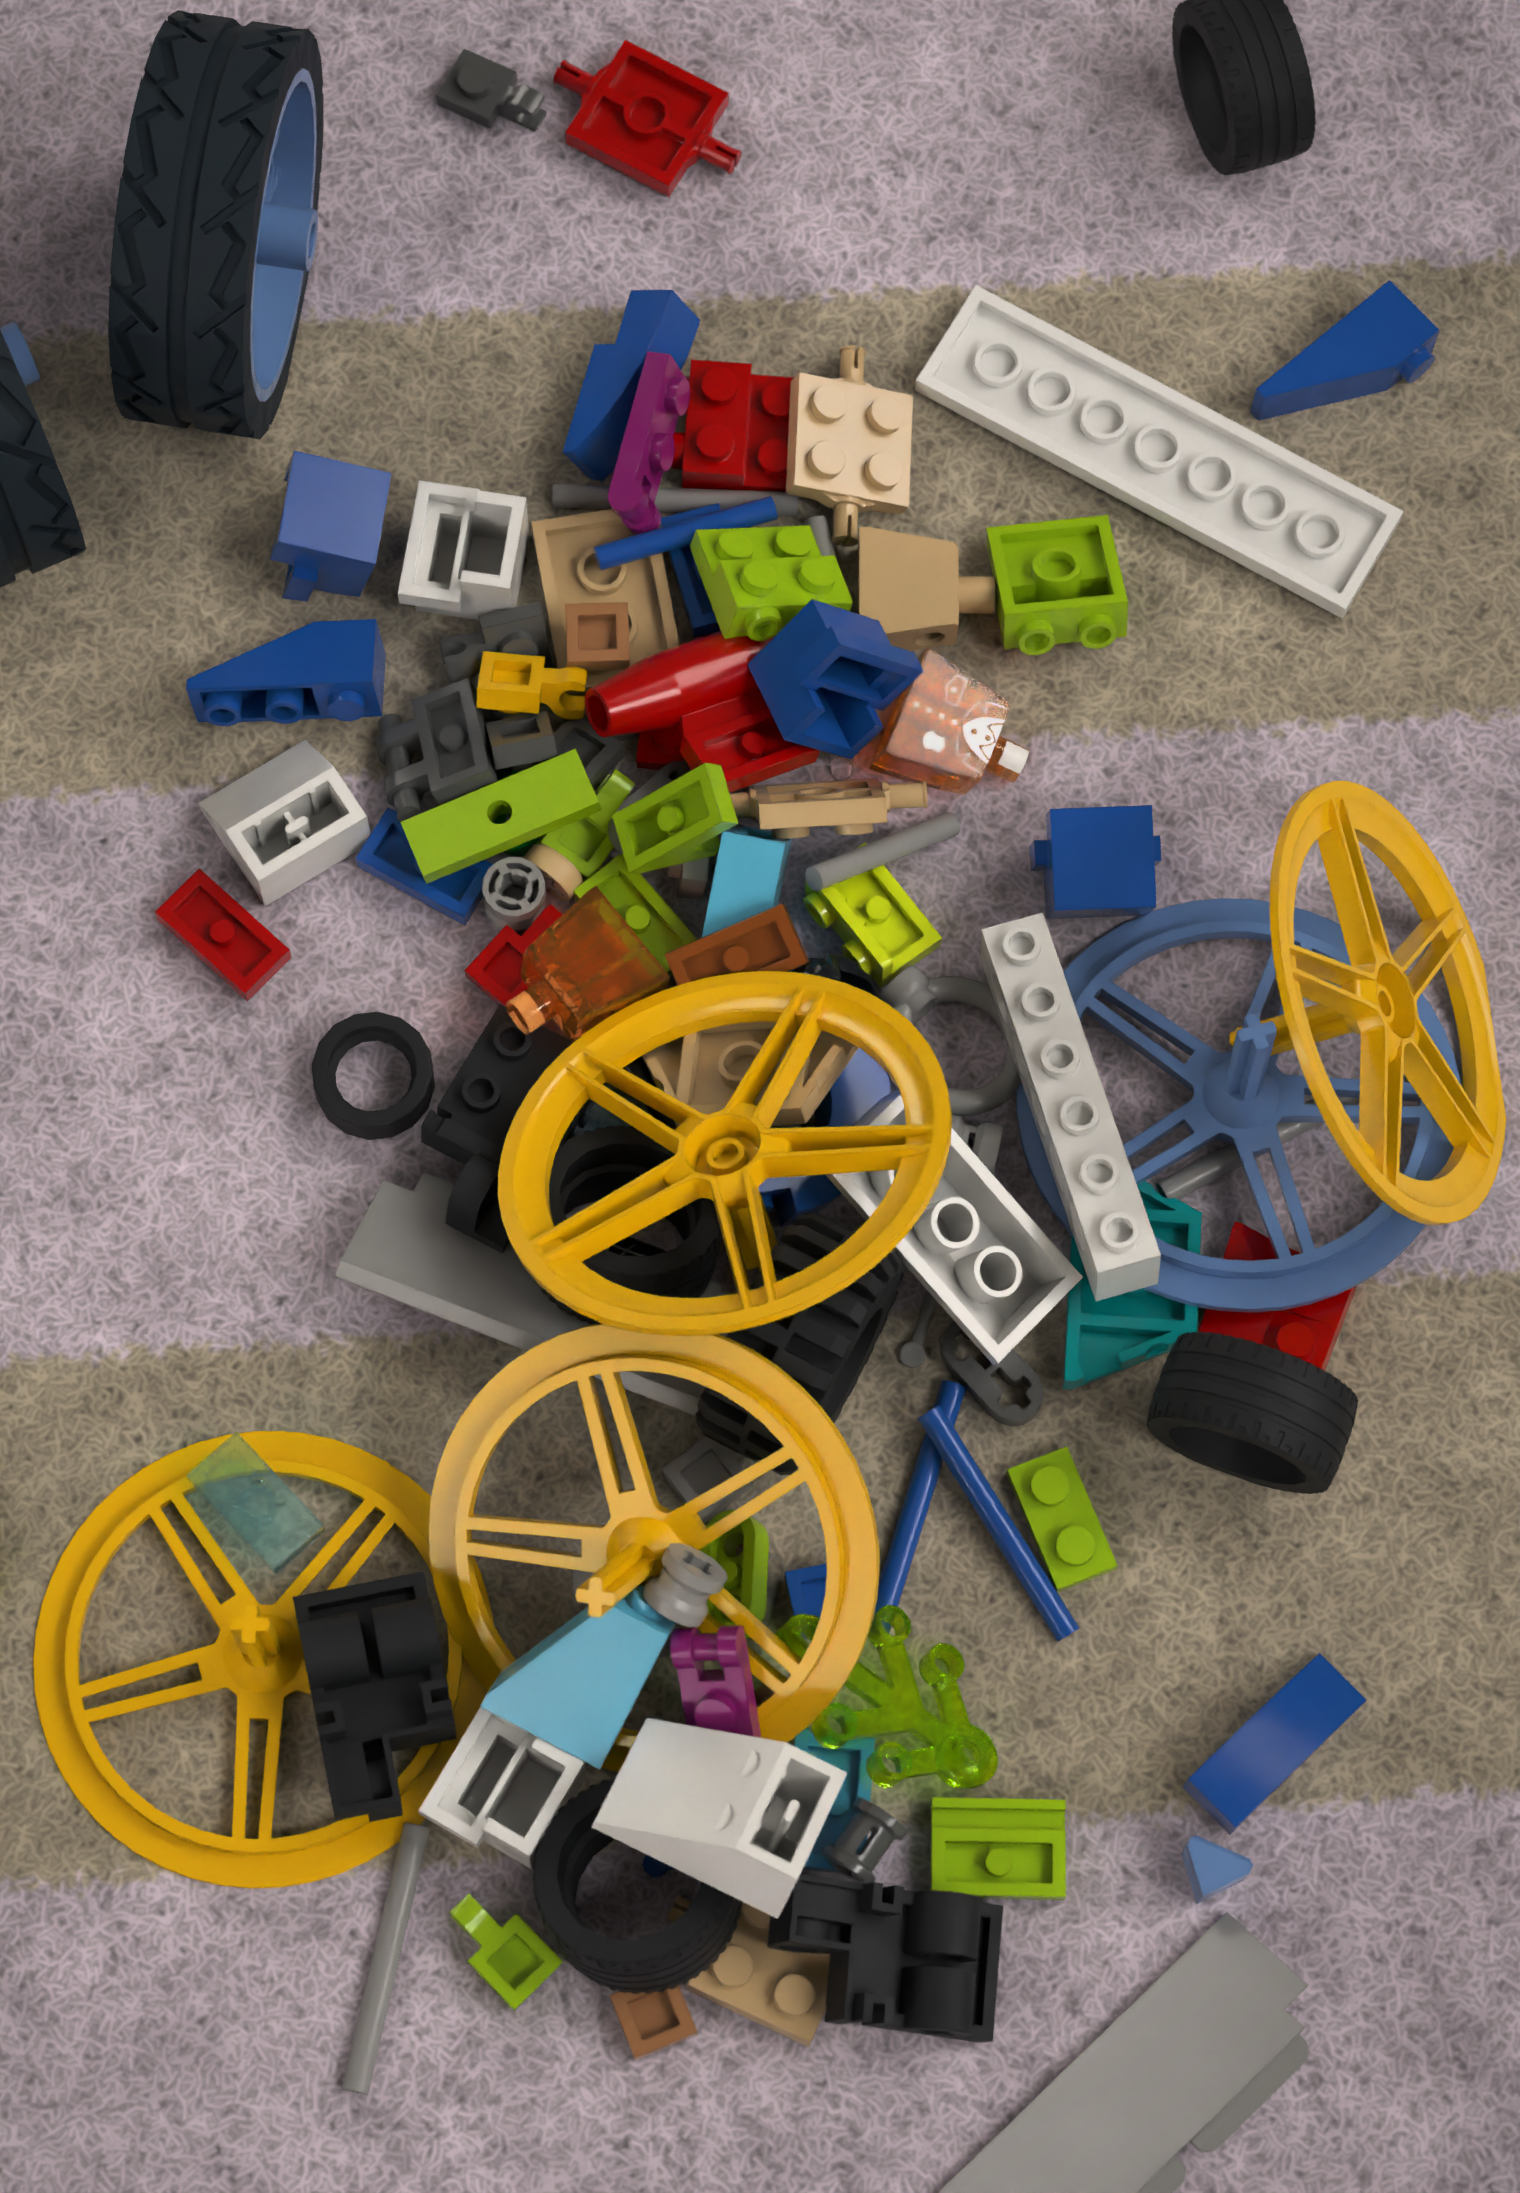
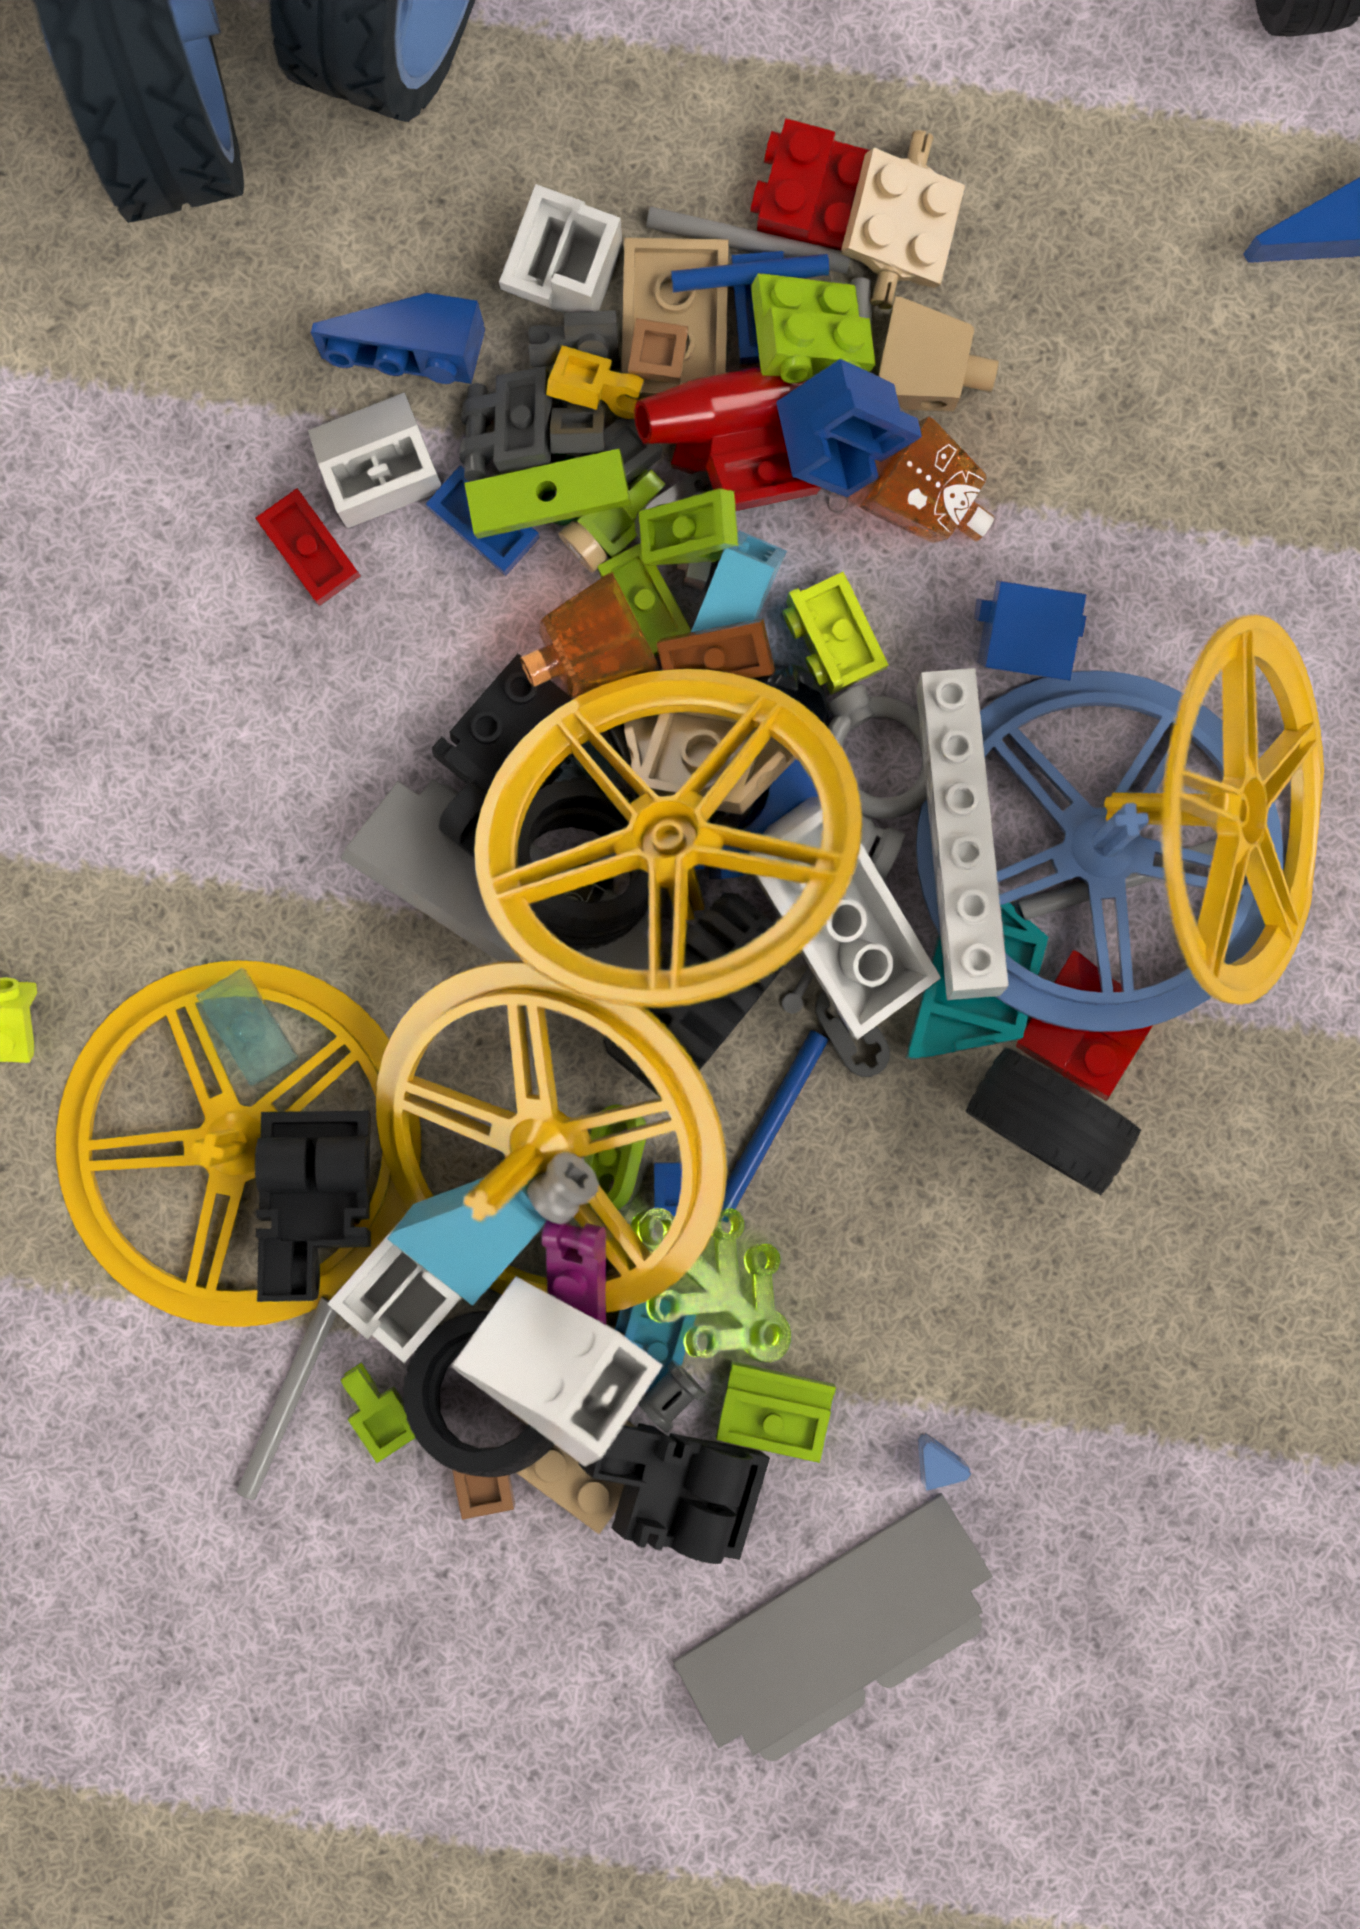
camera: 15 degrees right, 15 degrees up
(329, 525) = (453, 208): blue plate -> none
(367, 1028) = (378, 662): black tyre -> none
(500, 963) = (524, 615): red plate -> none
(518, 906) = (552, 570): light grey wheel -> none
(648, 442) = (733, 186): magenta plate -> none
(650, 323) = (730, 126): blue slope -> none
(702, 1469) = (605, 1077): light grey plate -> none
(847, 804) = (815, 534): tan plate -> none
(882, 851) = (854, 584): light grey bar -> none
(998, 1523) = (831, 1155): blue bar -> none
(1057, 584) = (1050, 376): lime plate -> none
(1061, 1519) = (881, 1160): lime plate -> none
(1159, 451) = (1159, 273): white plate -> none
(1273, 1743) = (1009, 1375): blue slope -> none

